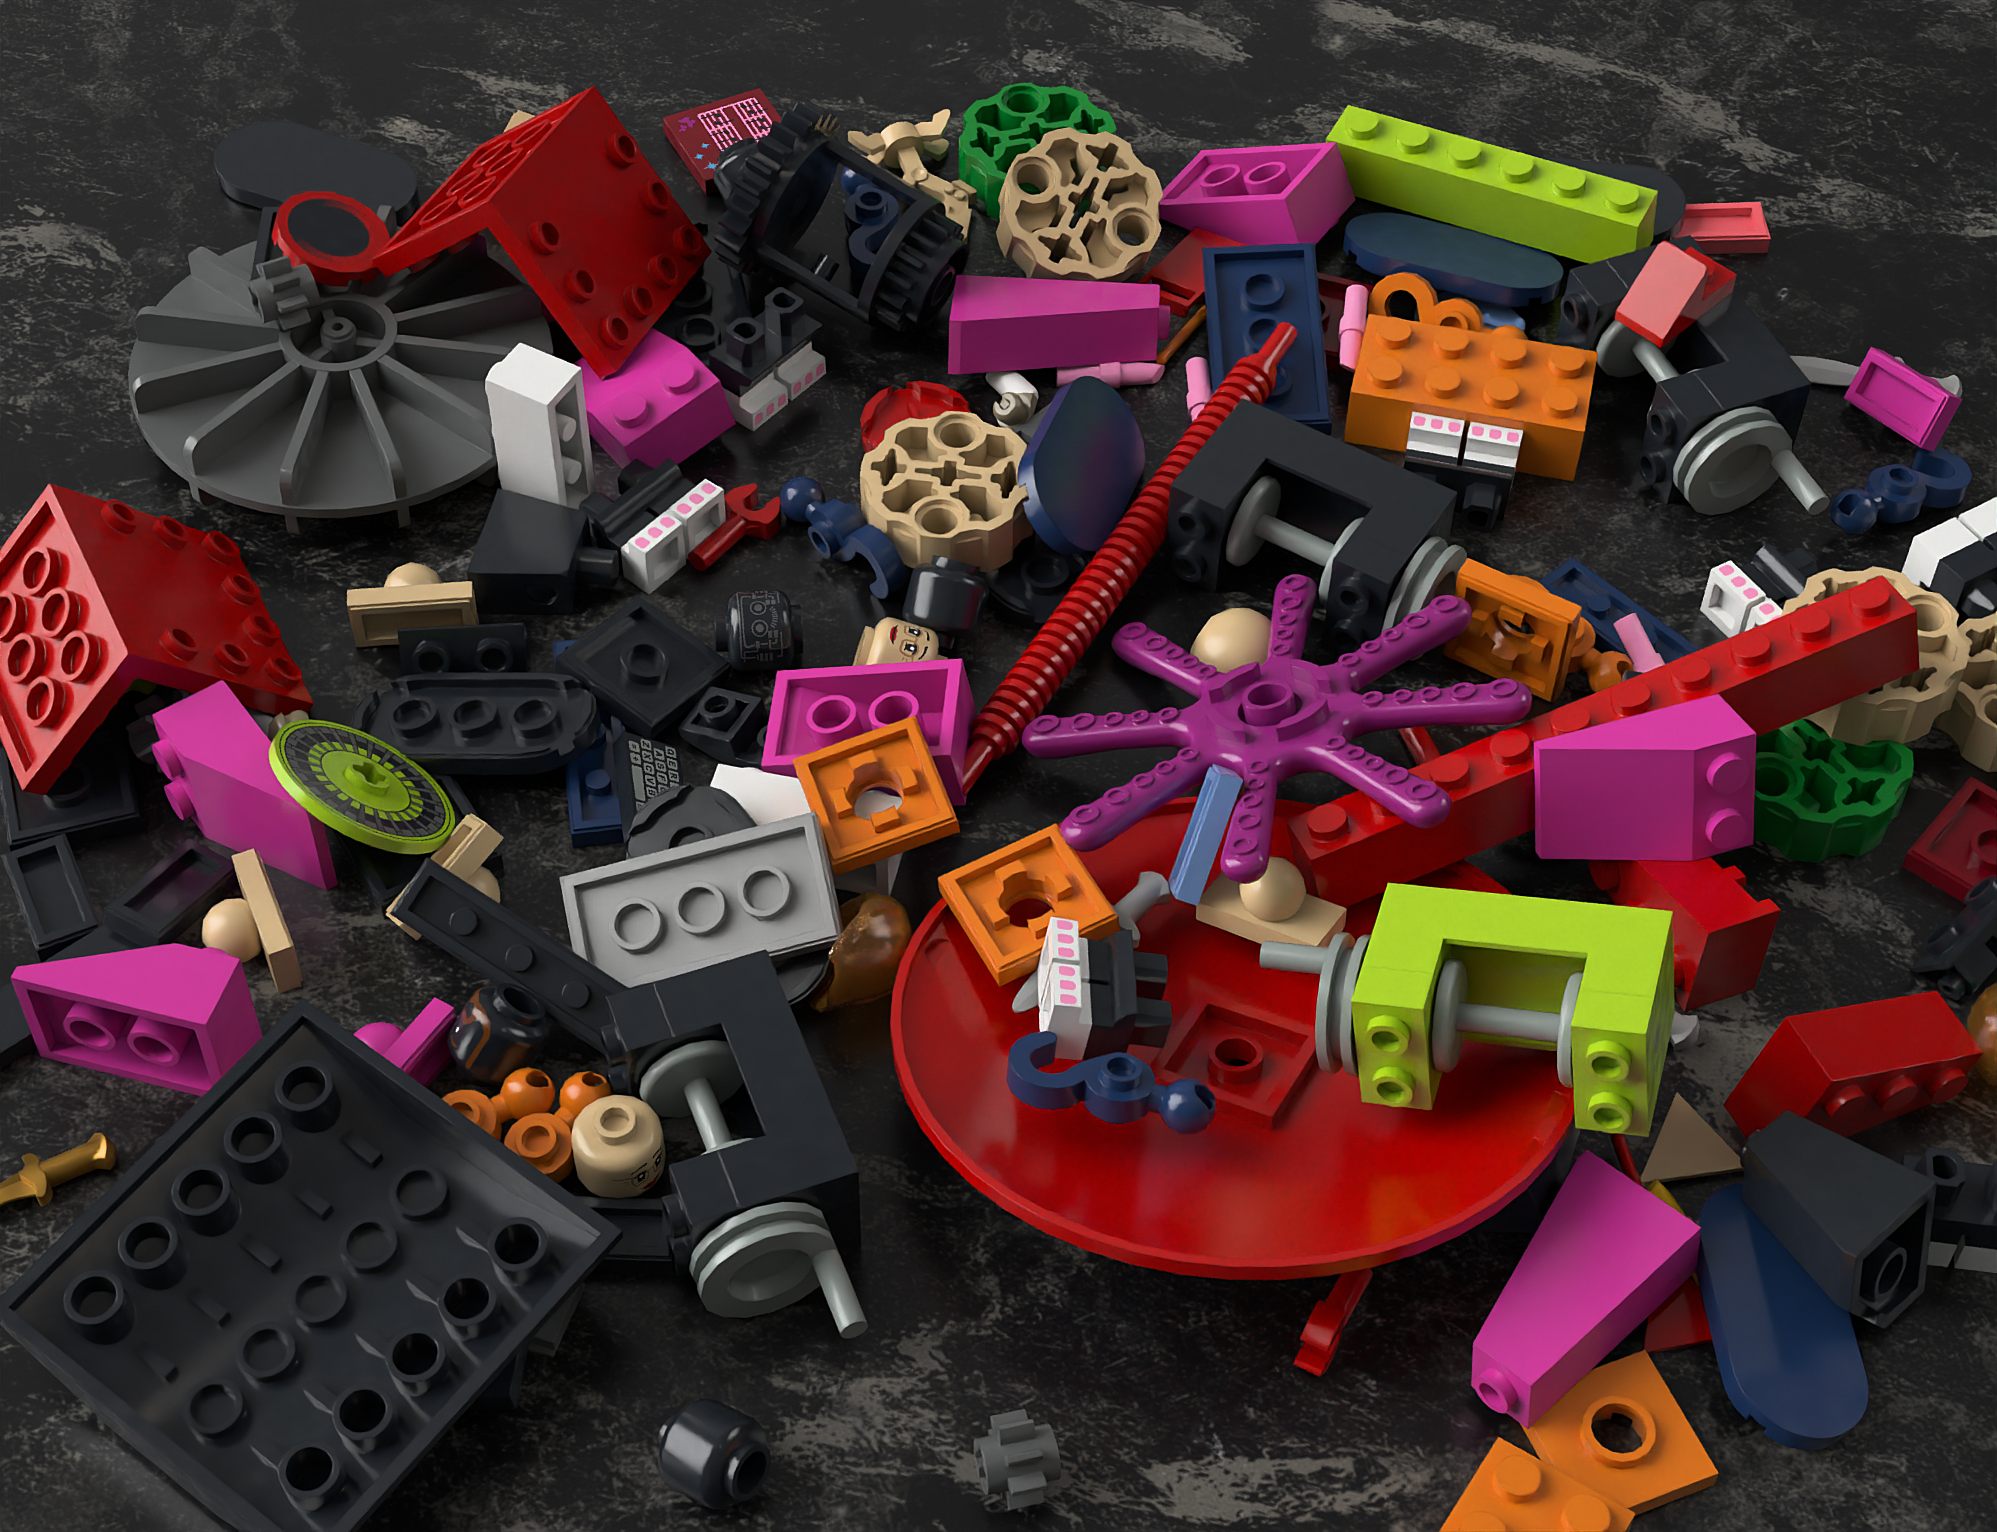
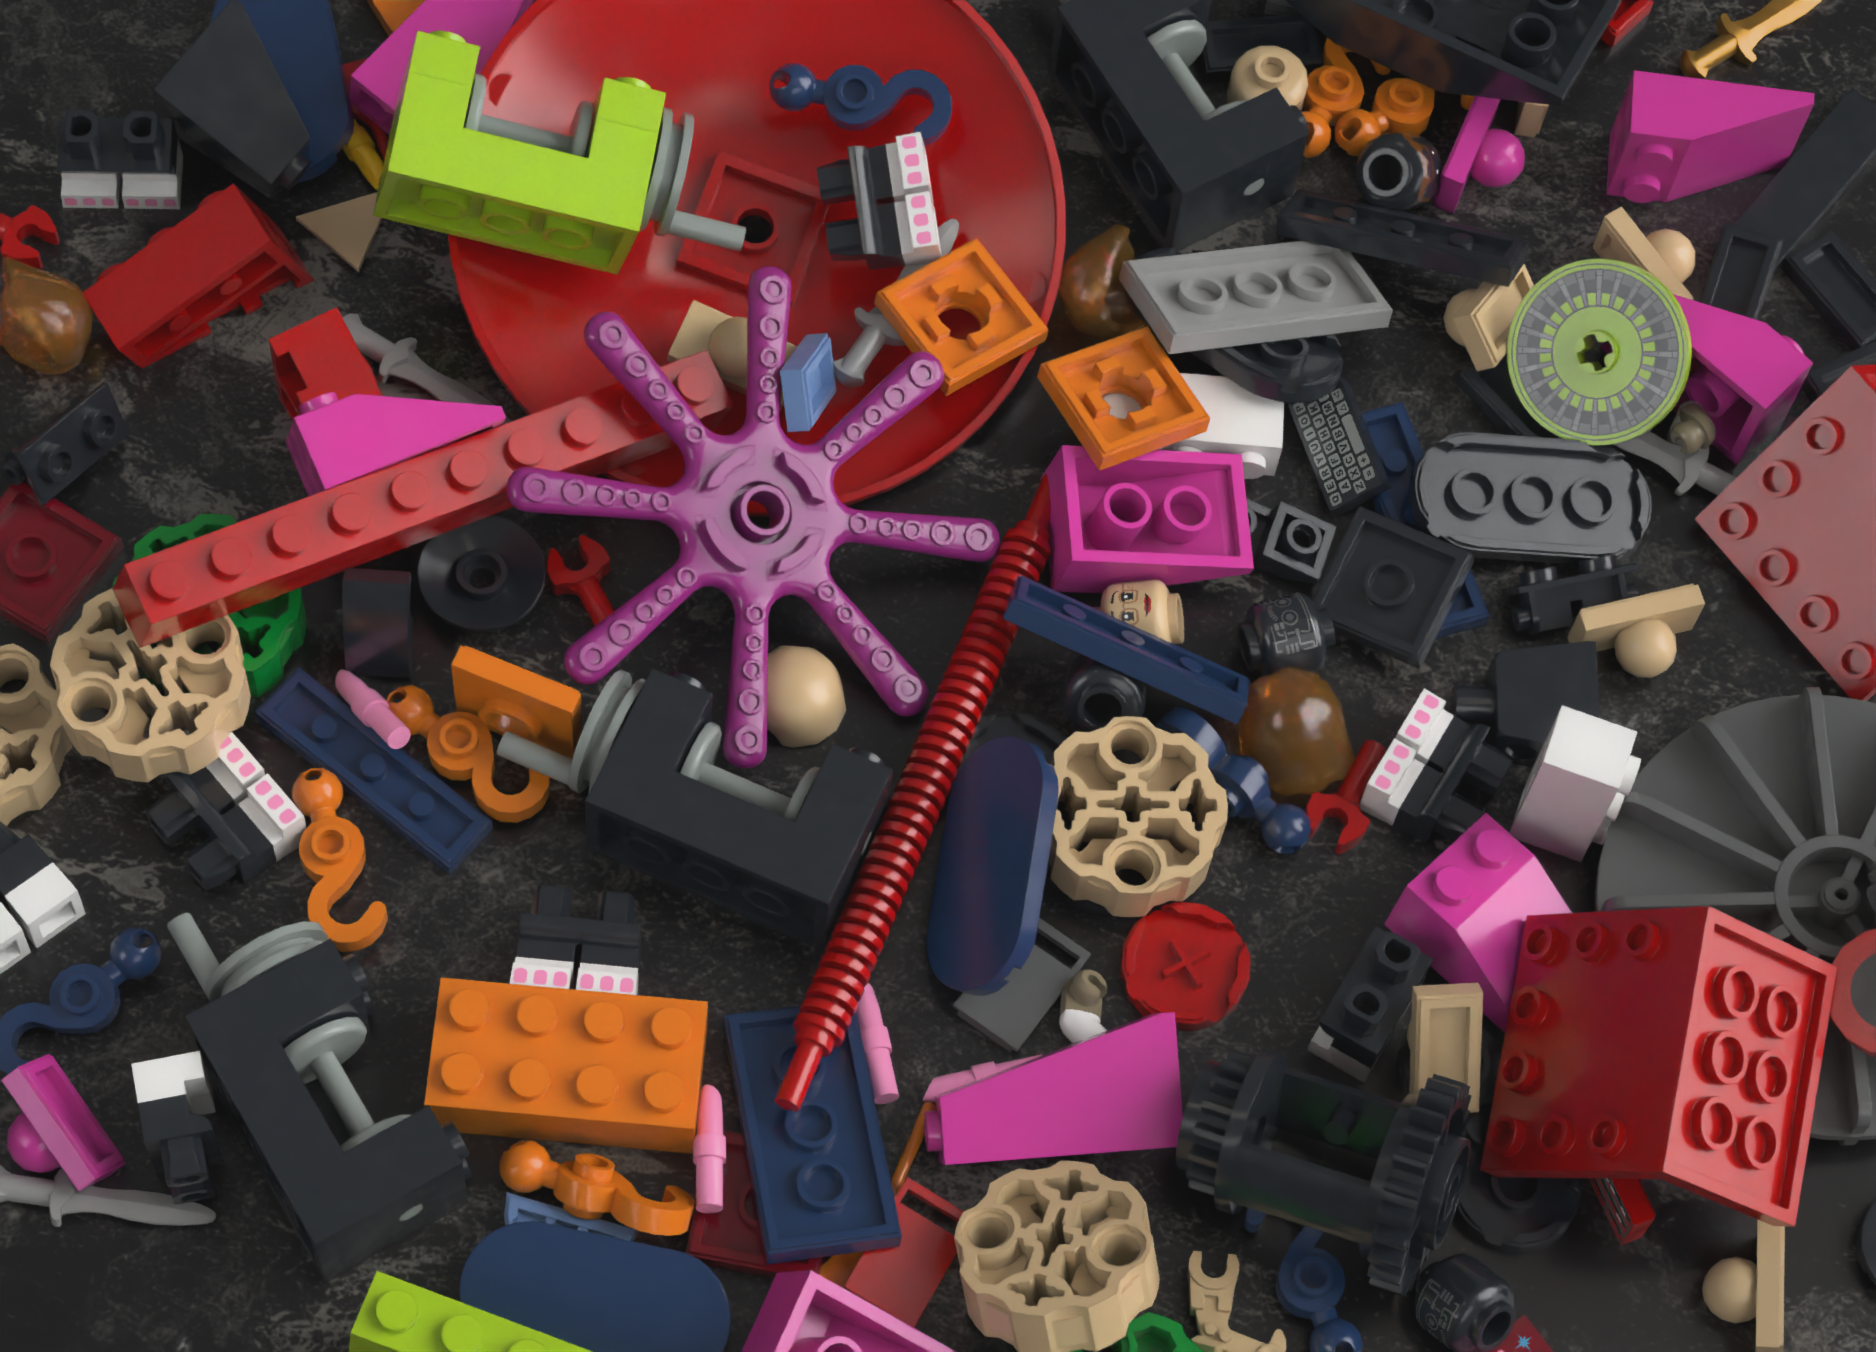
camera: 165 degrees right, 15 degrees up
(717, 305) = (1446, 1036): none -> tan tile
(772, 555) = (1296, 731): none -> clear orange hair
(925, 595) = (1127, 649): none -> dark blue tile
(1673, 292) = (338, 1115): slope -> none
(1678, 569) = (333, 858): none -> orange piece
(1826, 361) = (179, 1140): none -> black hips

